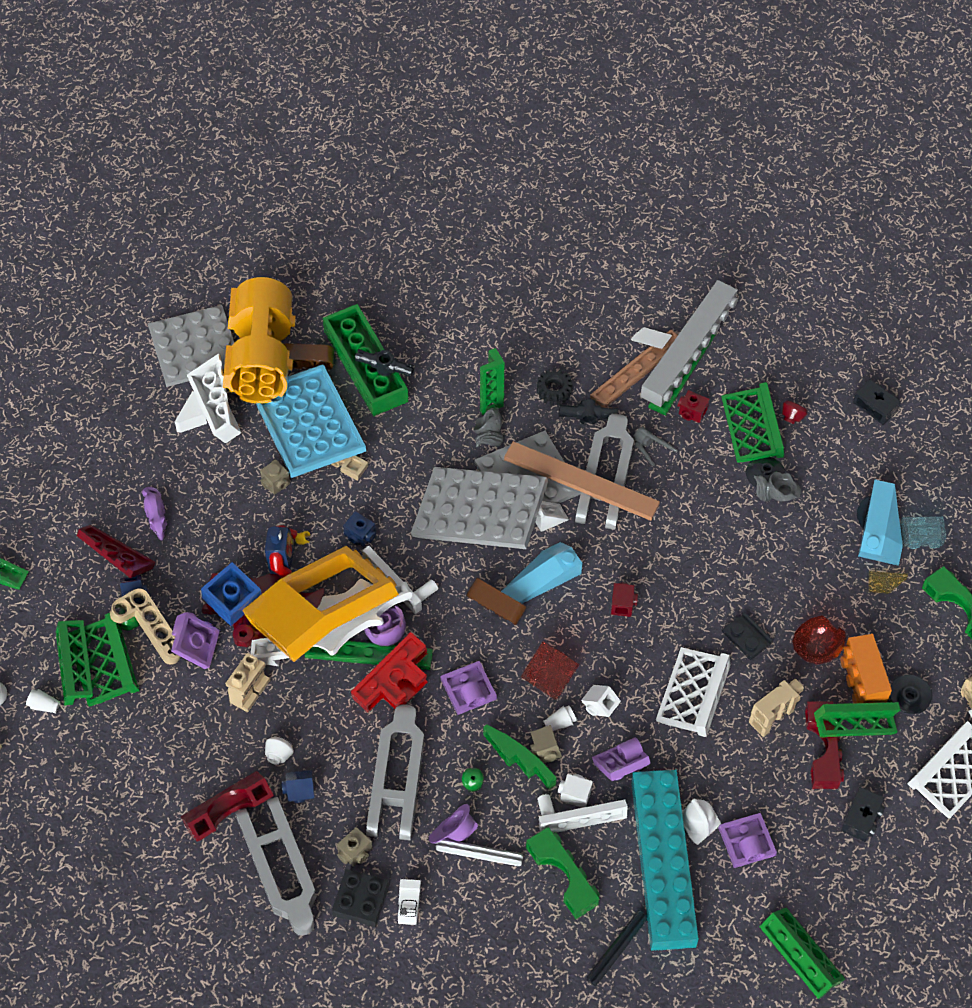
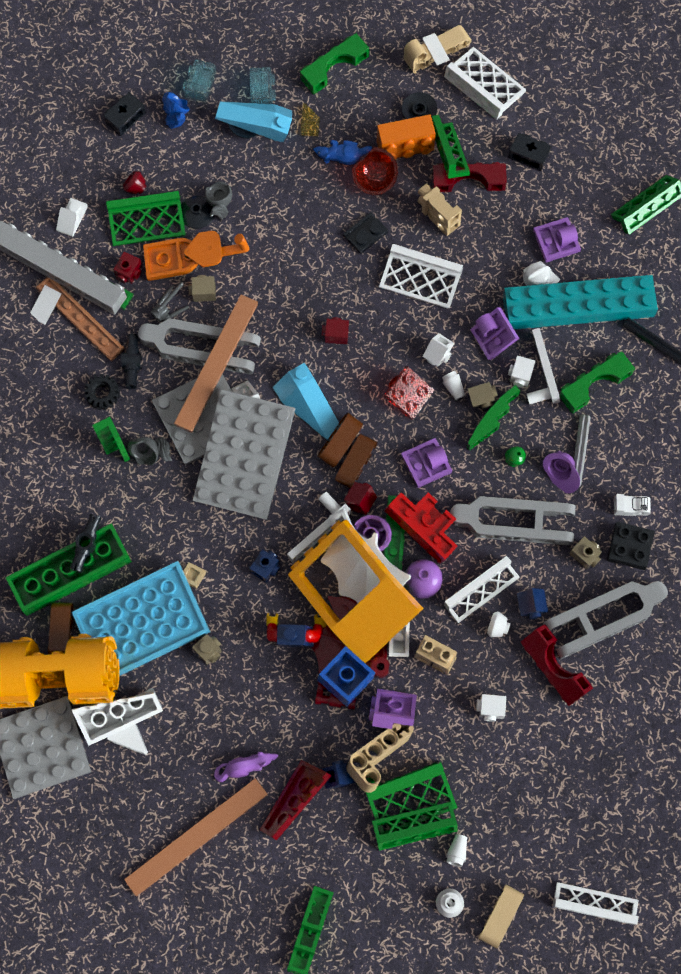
camera: 90 degrees left, 15 degrees up
(92, 473) = (195, 837): none -> nougat tile
(187, 738) = (491, 707): none -> white brick
(326, 732) = (480, 581): none -> white fence
(336, 680) = (425, 579): none -> medium lavender cylinder
(428, 618) = (360, 498): none -> dark red brick
(472, 616) = (355, 460): none -> reddish brown beam
(671, 473) = (203, 288): none -> dark tan brick
(709, 456) = (169, 257): none -> orange plate
(748, 357) = (71, 216): none -> white slope
(846, 612) = (345, 153): none -> blue animal
(889, 447) = (175, 109): none -> blue hair
(924, 472) = (200, 80): none -> clear light blue brick

